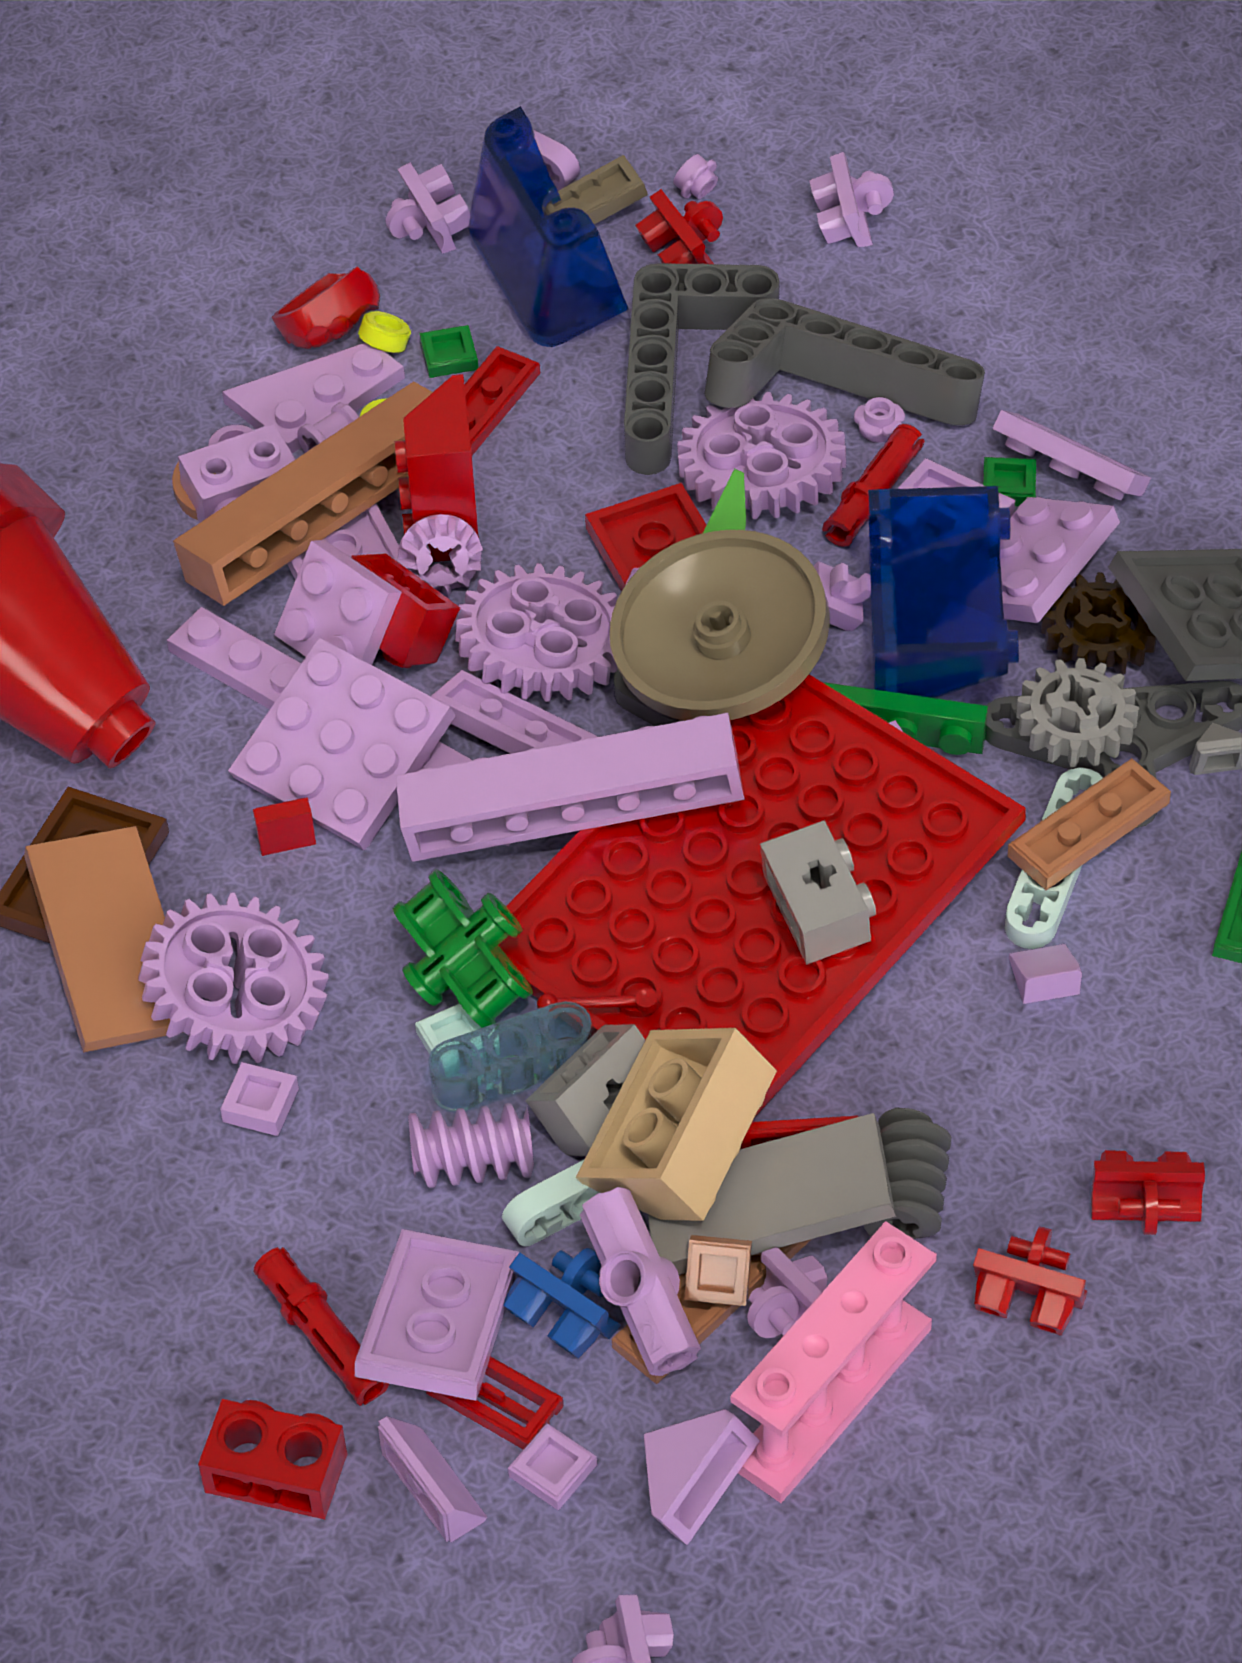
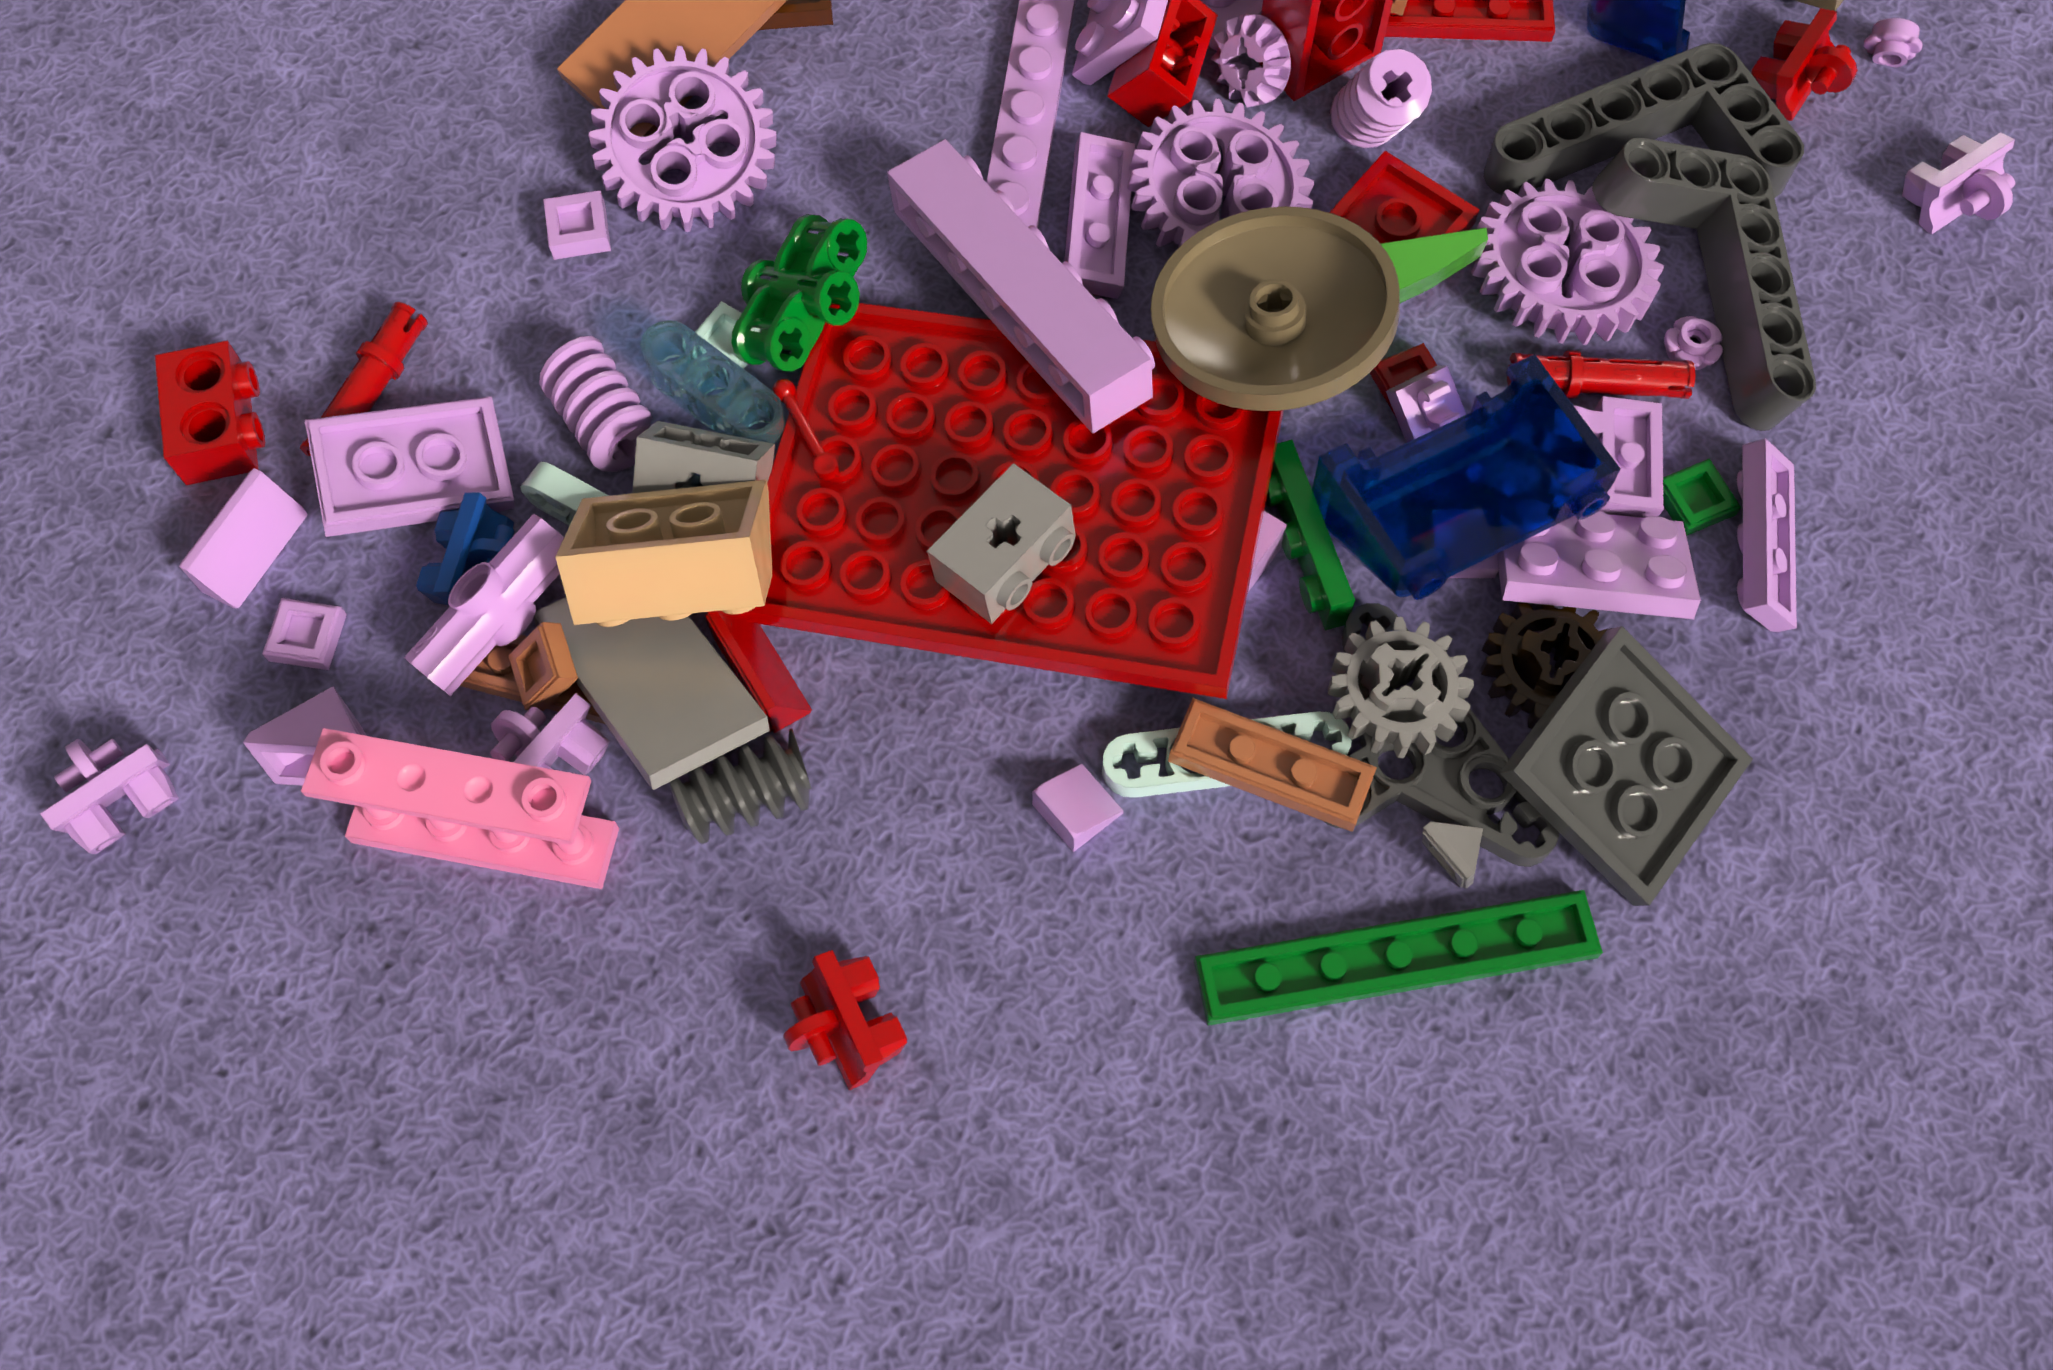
camera: 60 degrees right, 15 degrees up
(284, 826) = (875, 97): red tile -> none
(341, 742) = (992, 88): lavender plate -> none
(548, 489) = (1381, 99): none -> lavender piece
(549, 1403) = (377, 576): red tile -> none
(1055, 1291) = (685, 954): hips -> none

